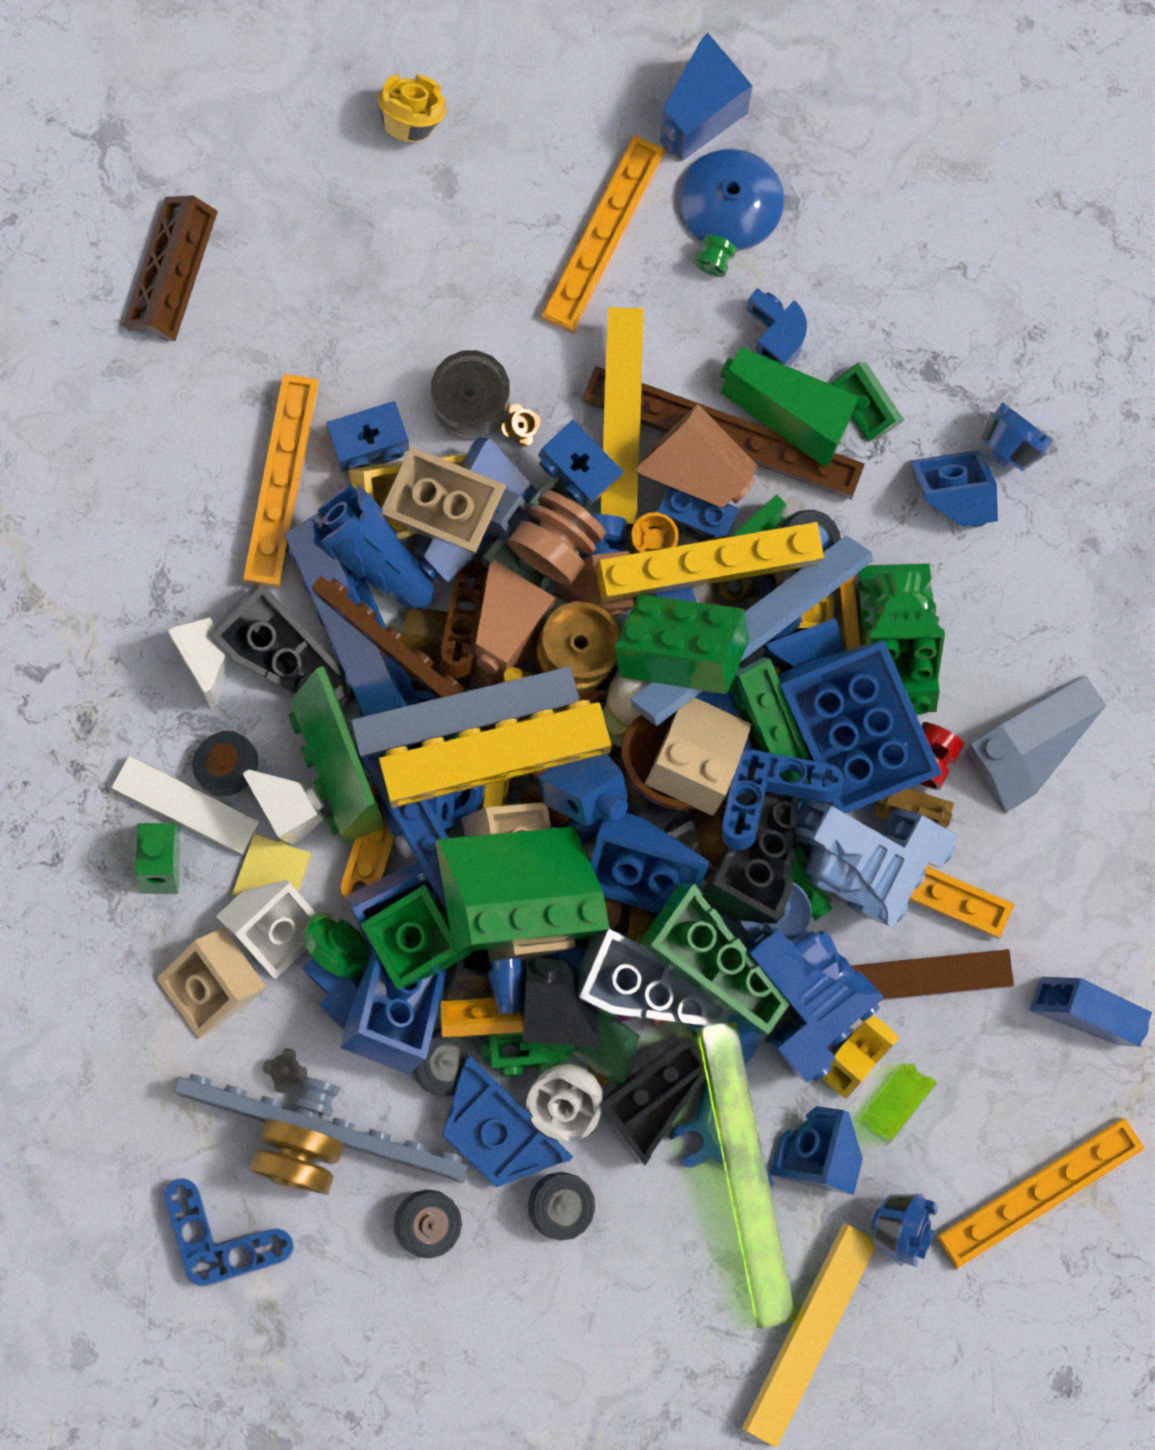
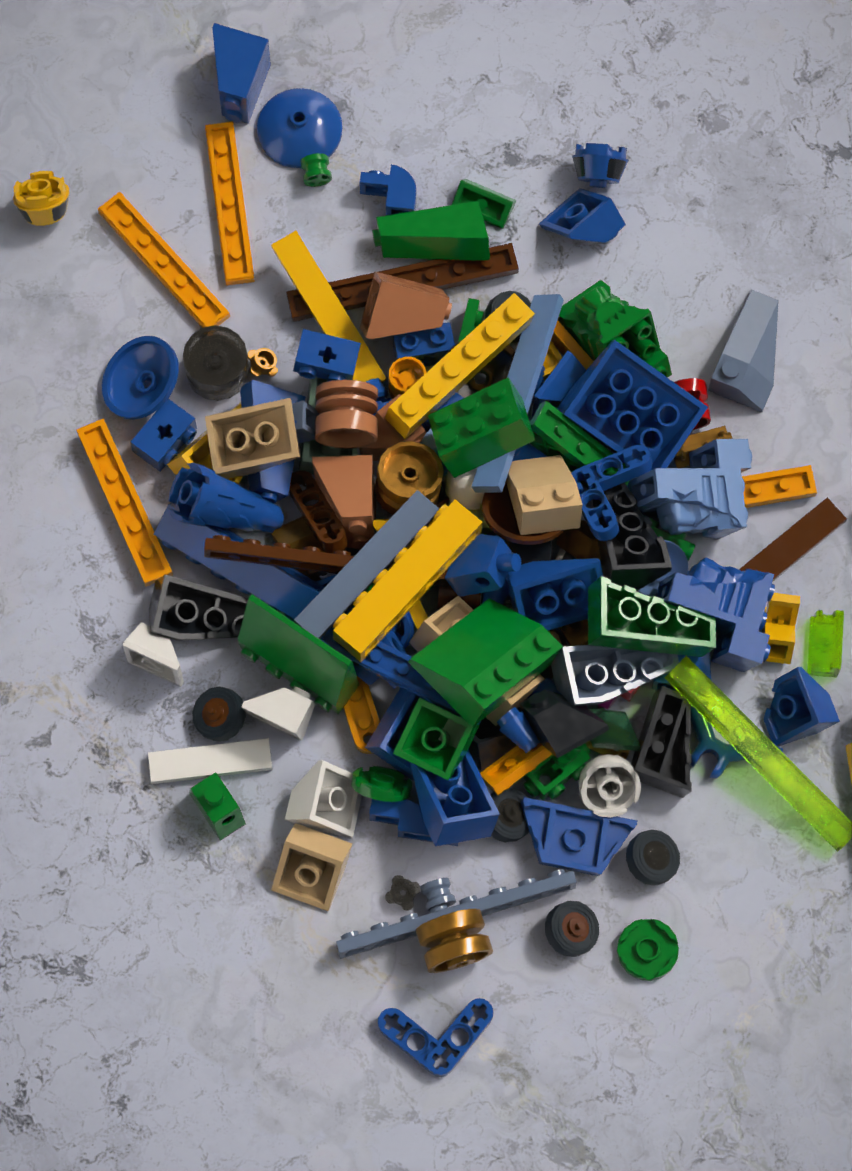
camera: 30 degrees left, 5 degrees down
(270, 863) = (294, 762): light yellow piece -> none
(382, 361) = (140, 377): none -> blue dish
(492, 1296) = (647, 949): none -> green tile
(493, 254) = (163, 262): none -> light orange tile

